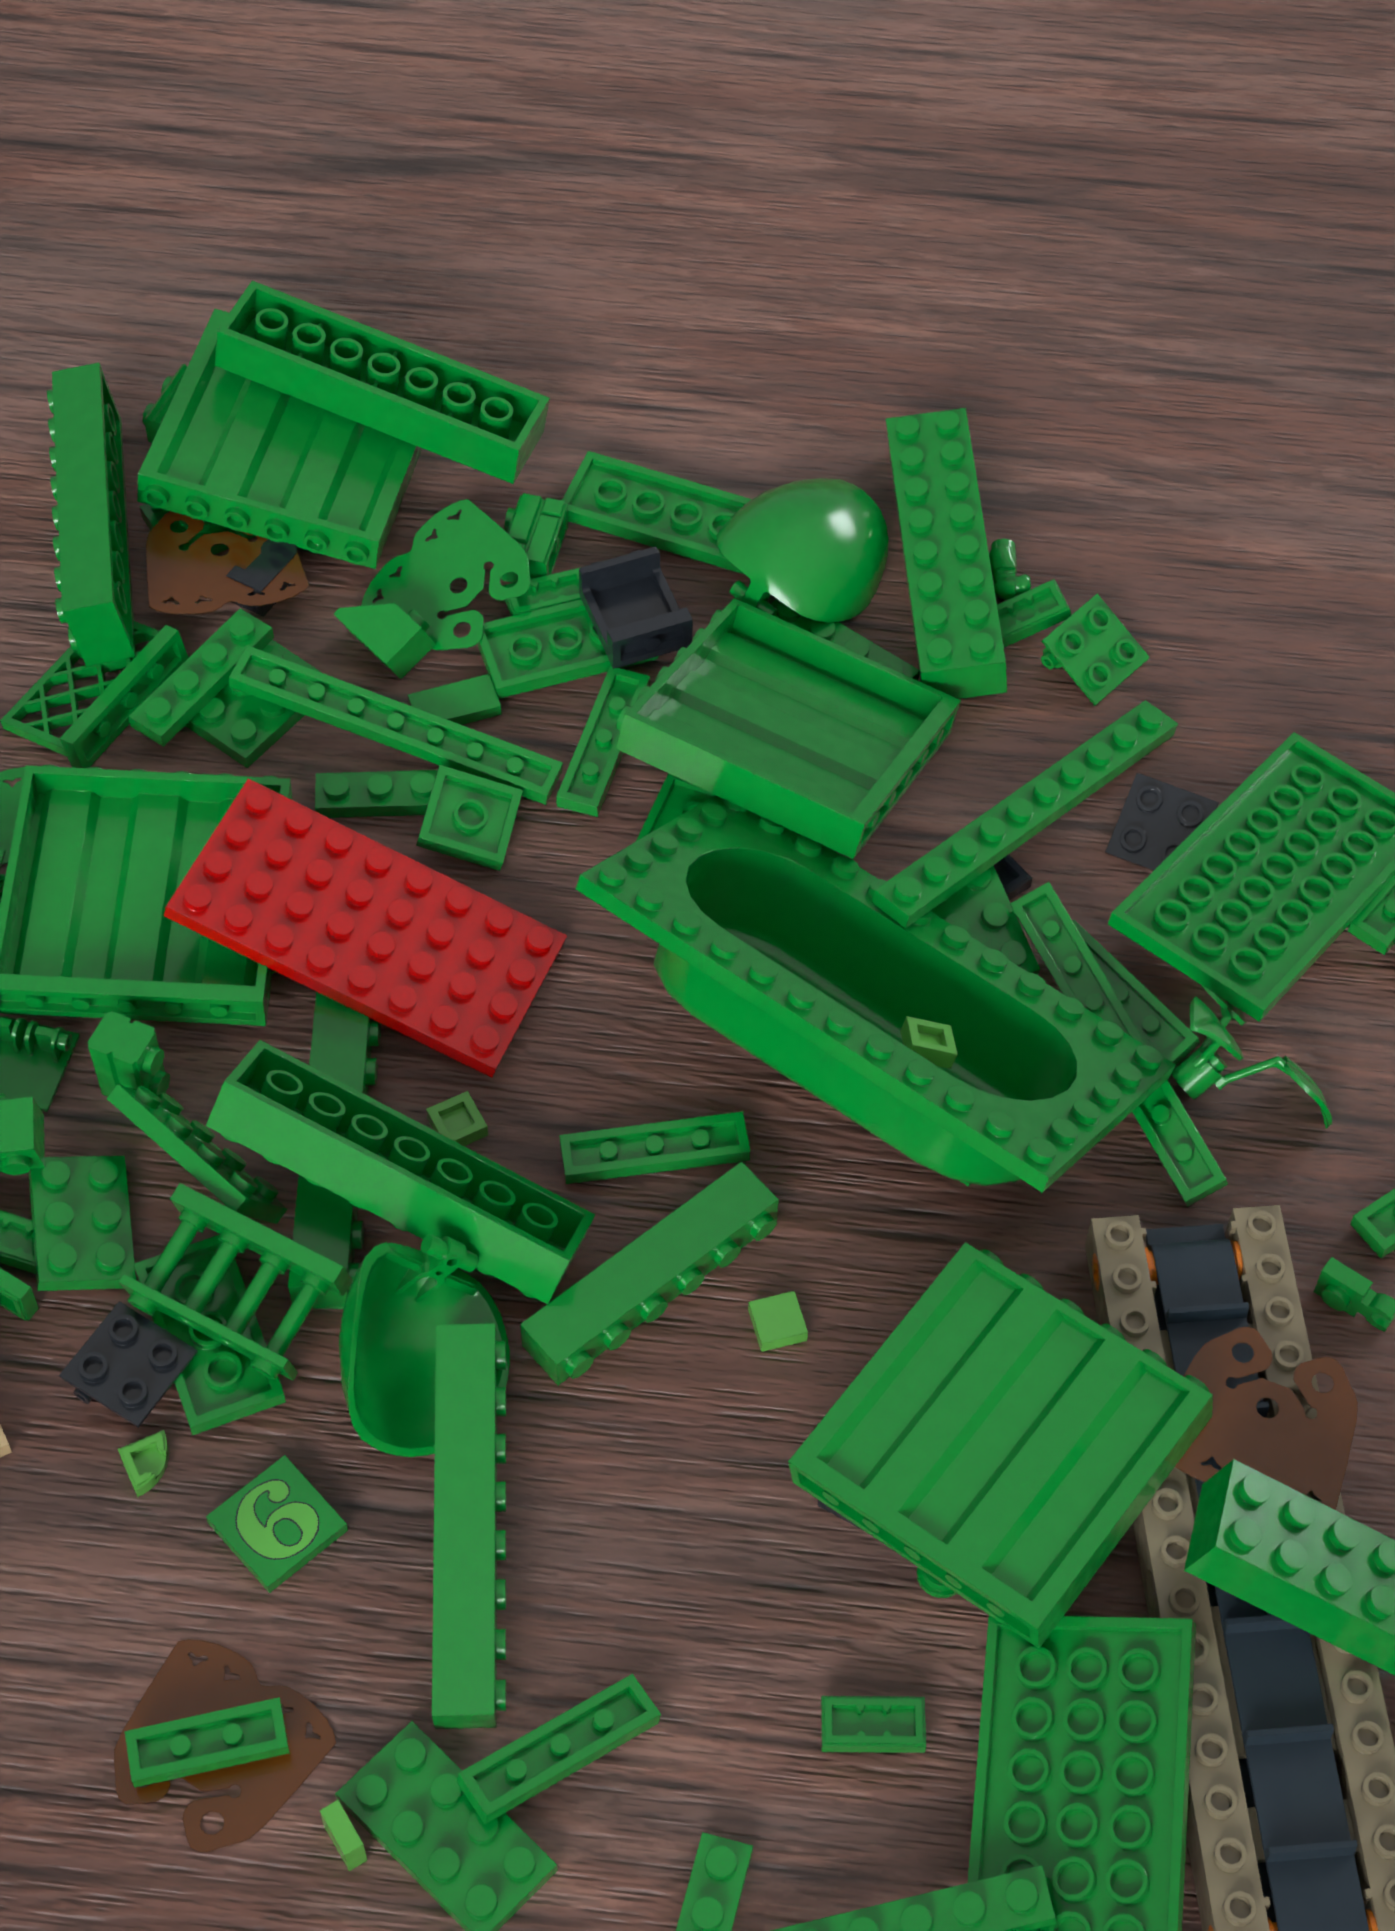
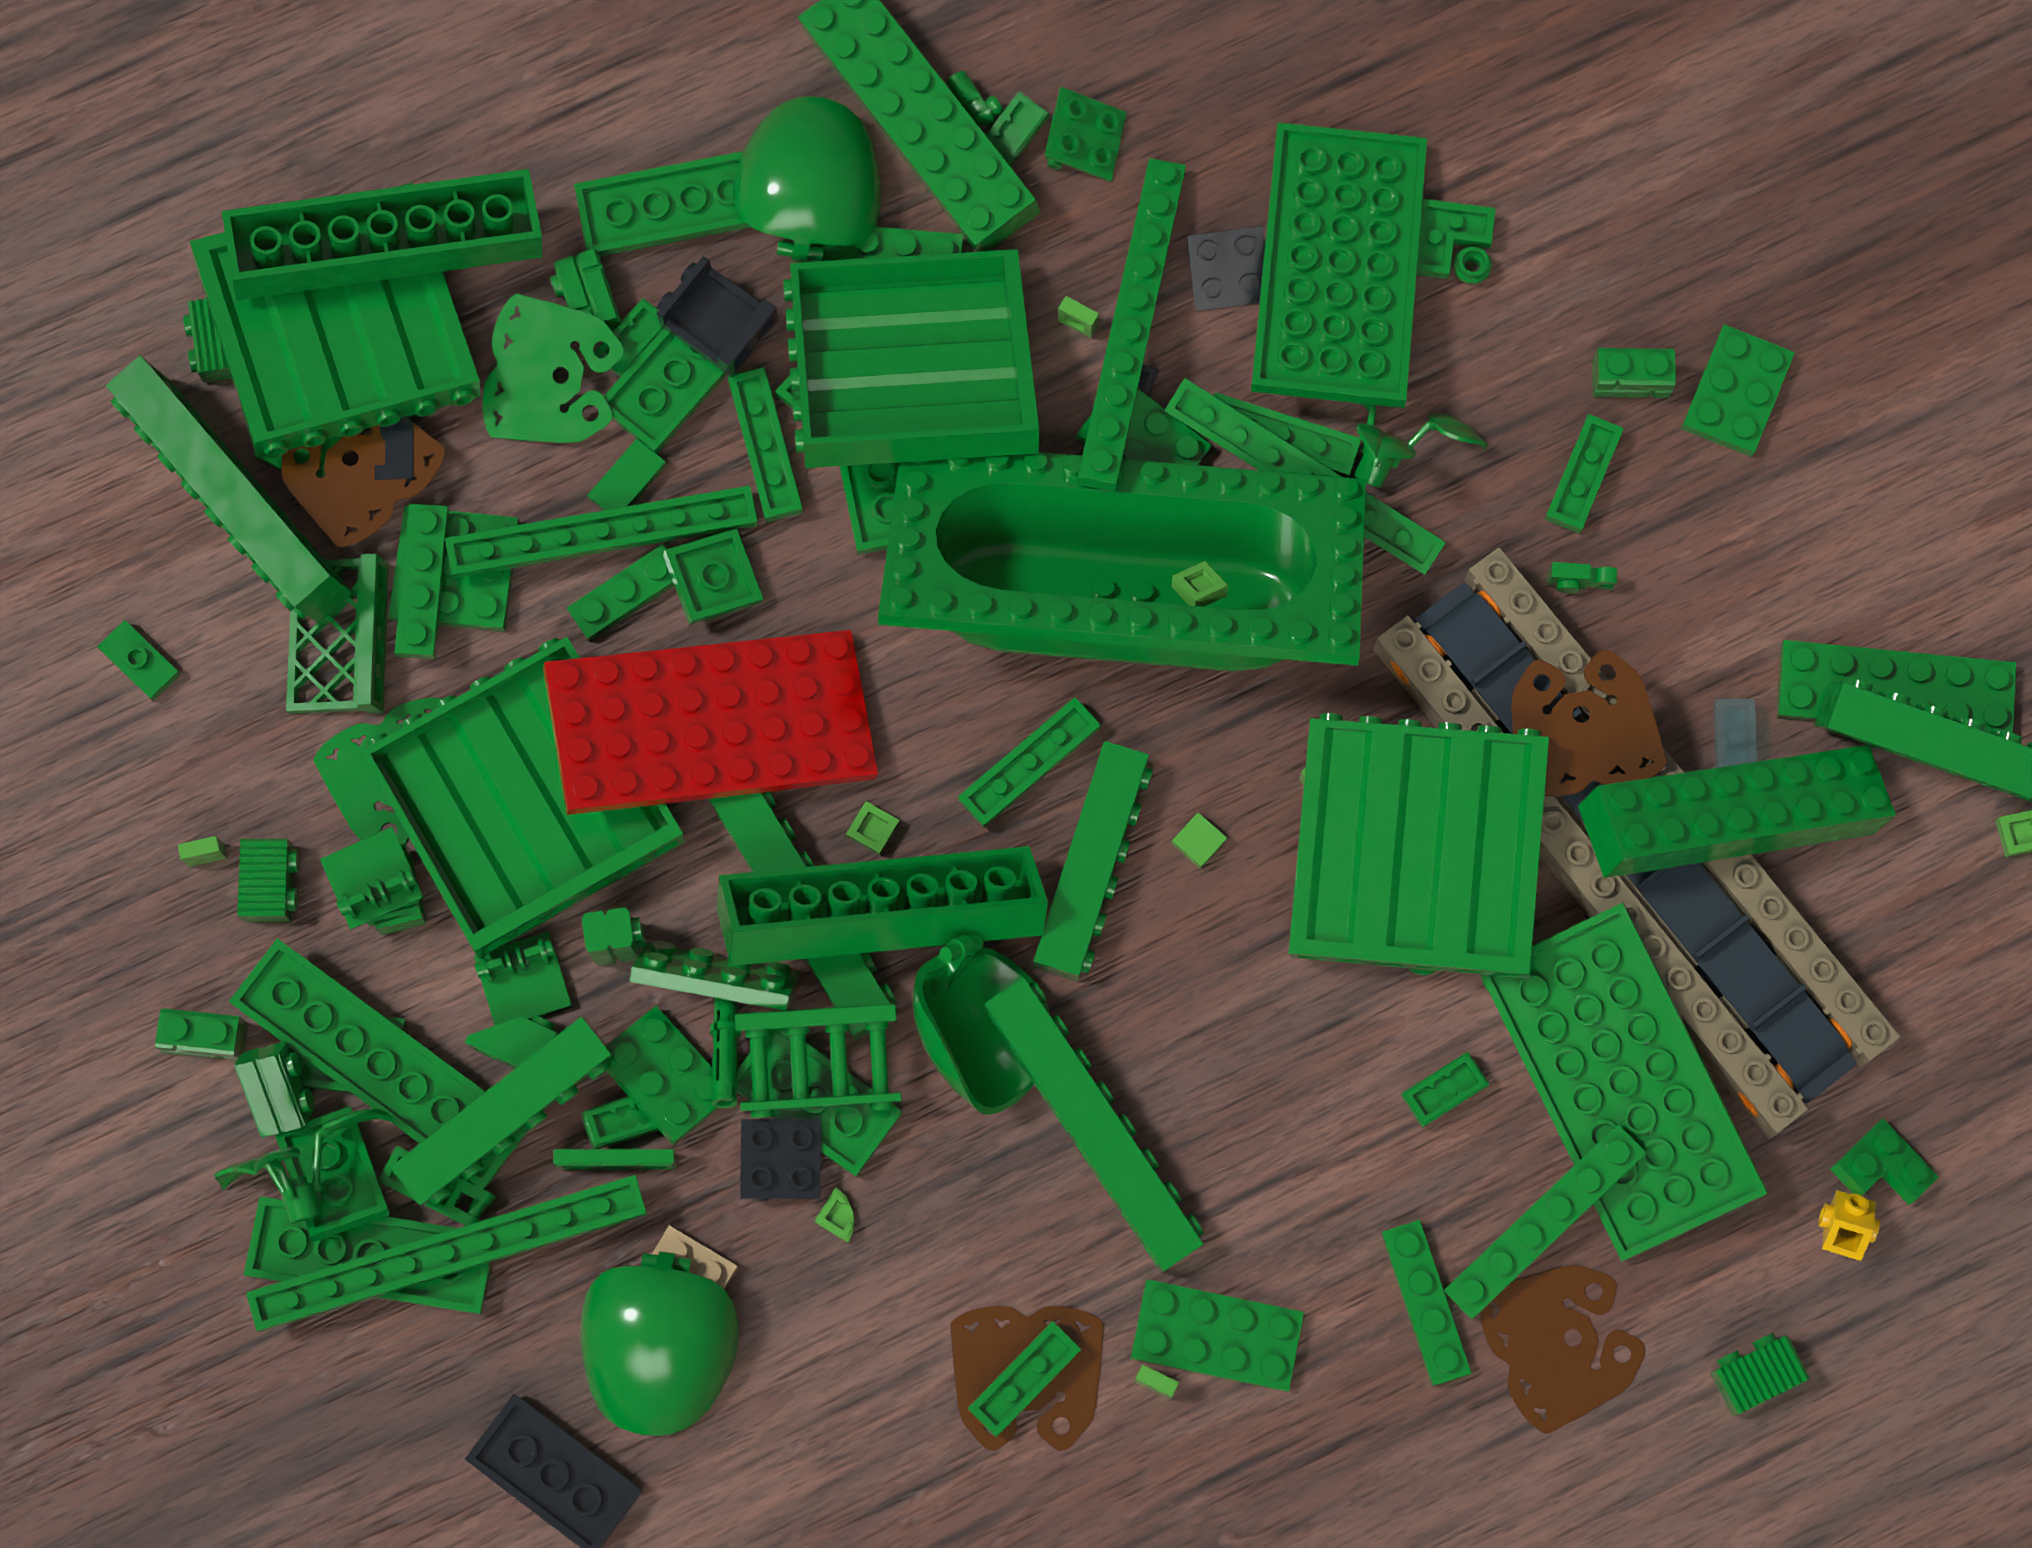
camera: 30 degrees left, 20 degrees up
(147, 1236) = (724, 1053): none -> green pin
(277, 1523) = (959, 1202): green tile -> none
(389, 634) = (538, 453): green slope -> none
(558, 1748) = (1257, 1237): green plate -> none
(981, 788) = (1078, 317): none -> bright green tile

